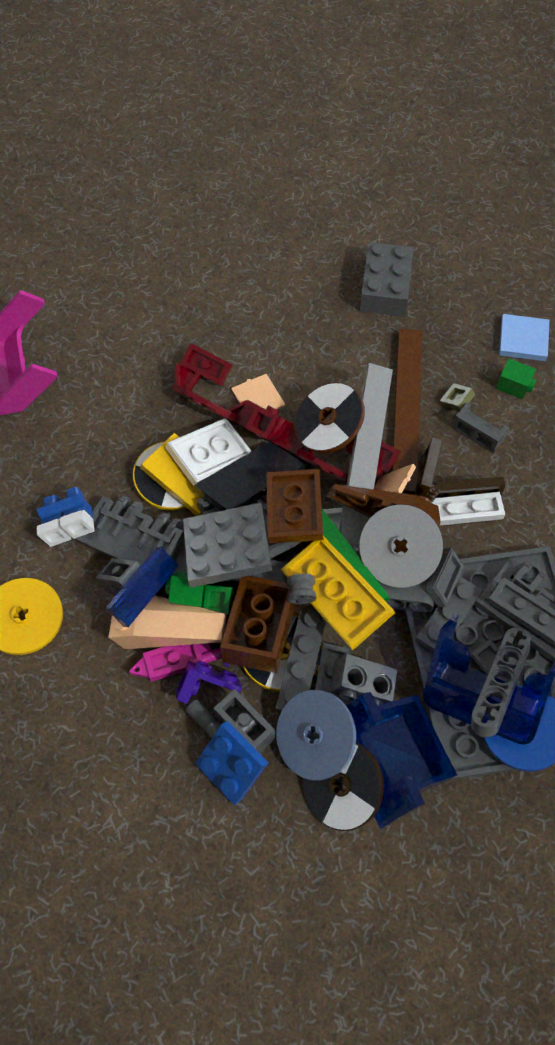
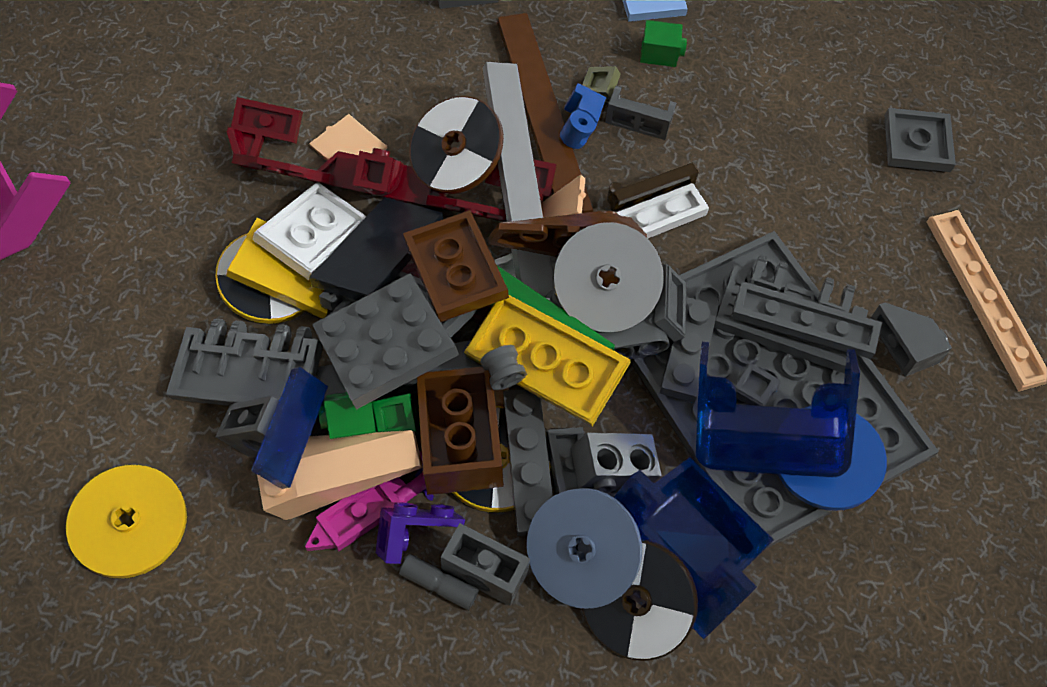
camera: 25 degrees left, 0 degrees up
(65, 517) = (143, 370): hips -> none
(231, 763) = (486, 620): blue plate -> none
(426, 473) = (598, 179): dark brown hinge -> none
(438, 413) = (585, 111): none -> blue leg
(500, 690) = (788, 418): dark grey beam -> none

